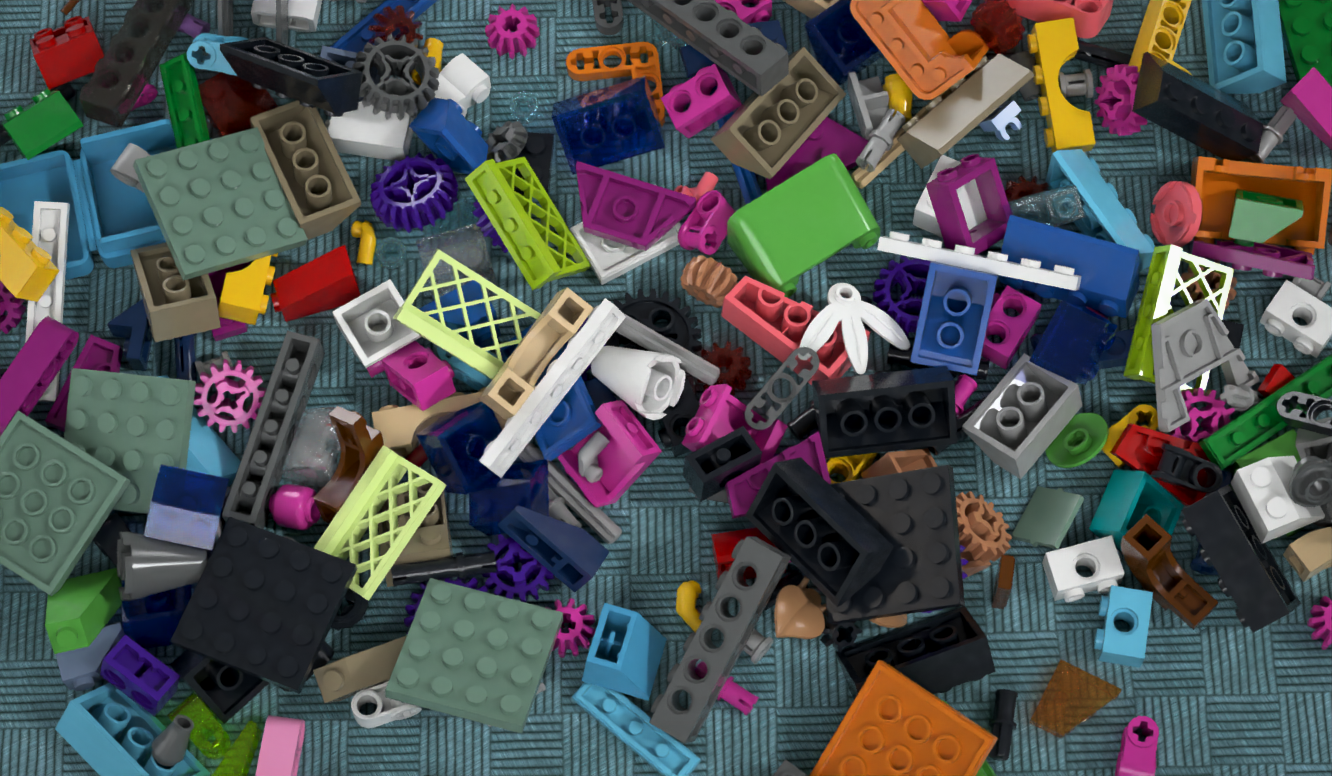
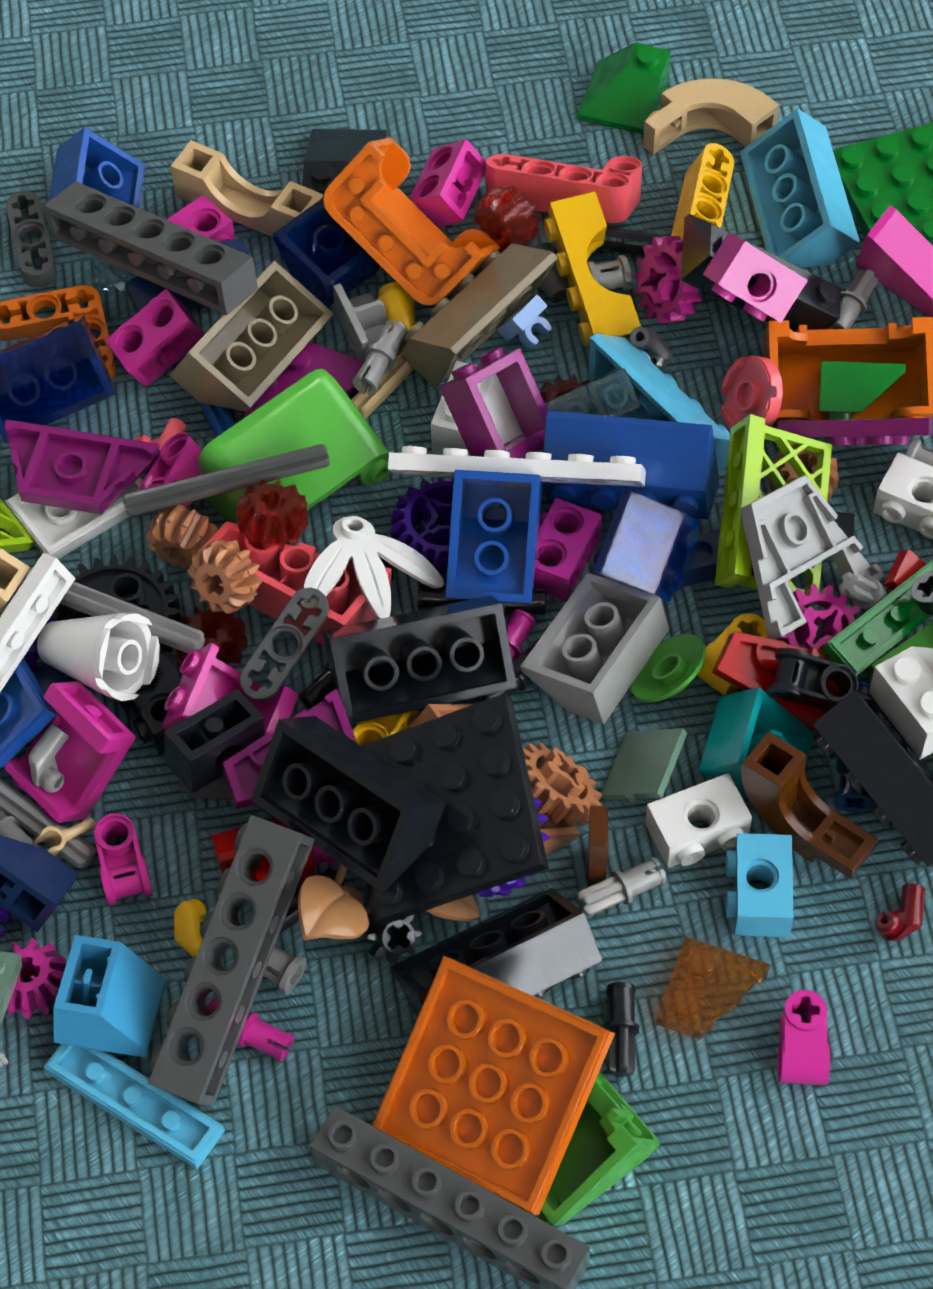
camera: 10 degrees left, 10 degrees down
(594, 521) = (57, 838): none -> tan hand
(641, 548) = (122, 866): none -> dark pink piece
(740, 325) = (224, 576): none -> nougat gear
(749, 243) = (226, 480): none -> dark grey axle
(782, 277) = (272, 514): none -> clear red gear
(1016, 613) = (621, 887): none -> light grey axle
(1101, 152) = (651, 341): none -> flat silver arm
(1208, 127) = (737, 263): none -> brick
(1231, 666) = (906, 919): none -> dark red arm

